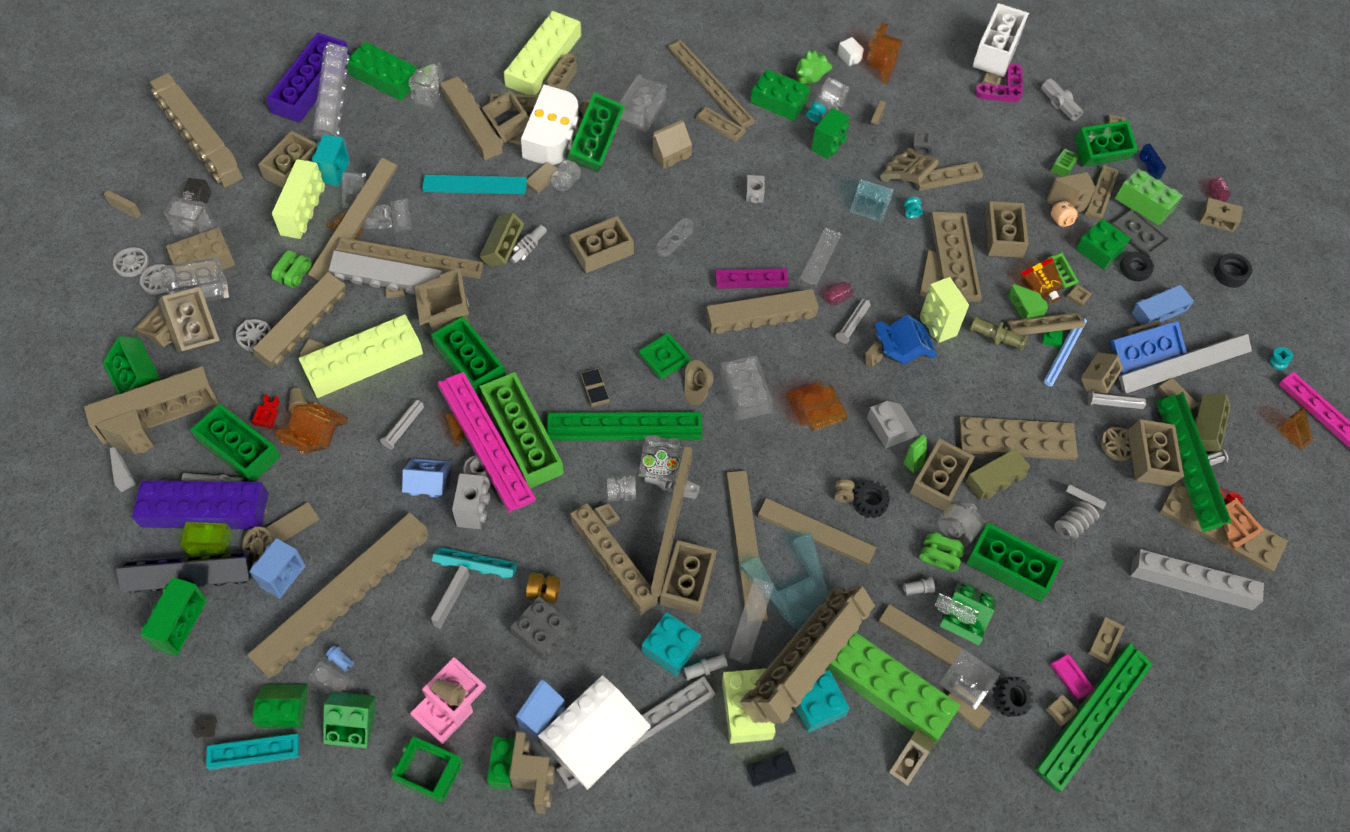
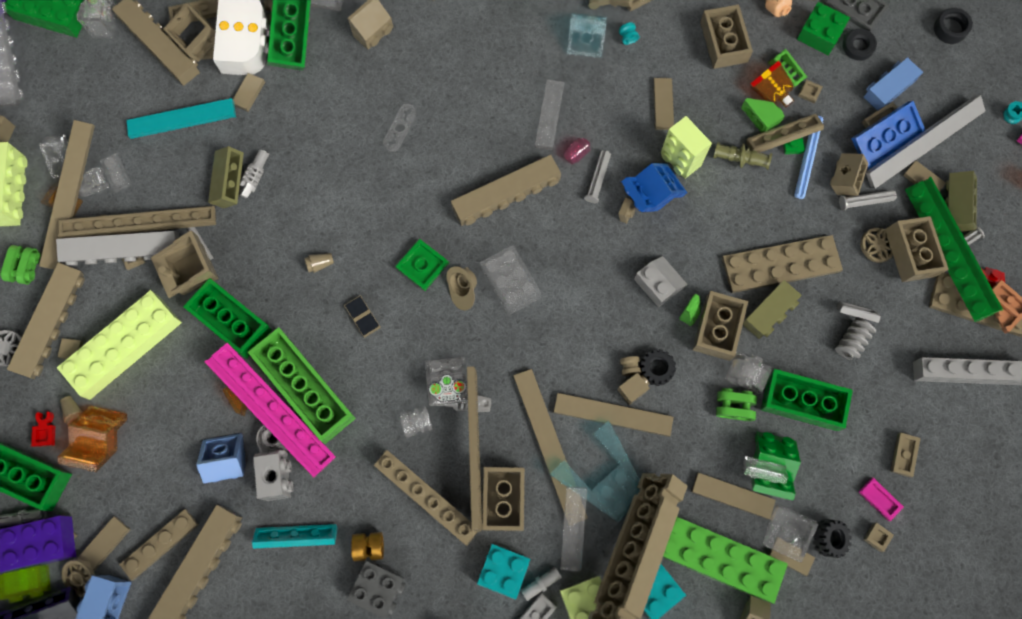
camera: 10 degrees left, 15 degrees up
(331, 159) = (22, 129): teal brick -> none
(342, 538) = (159, 544): none -> dark tan plate
(403, 423) = (183, 406): light grey axle -> none
(450, 596) = (280, 579): light grey tile -> none
(565, 176) = (271, 86): clear wheel -> none
(566, 331) = (317, 262): none -> dark tan cone
(601, 244) = (328, 156): dark tan brick -> none
(607, 515) = (408, 453): dark tan plate -> none
(624, 426) = (401, 352): green plate -> none
(751, 278) = (487, 155): magenta plate -> none
(755, 188) = (467, 45): light grey brick -> none
(817, 406) = (584, 283): clear orange bracket -> none
(842, 511) = (634, 388): none -> dark tan brick
(923, 586) = (726, 445): light grey pin -> none
(956, 253) = (682, 77): dark tan plate -> none
(1093, 717) = (908, 536): green plate -> none

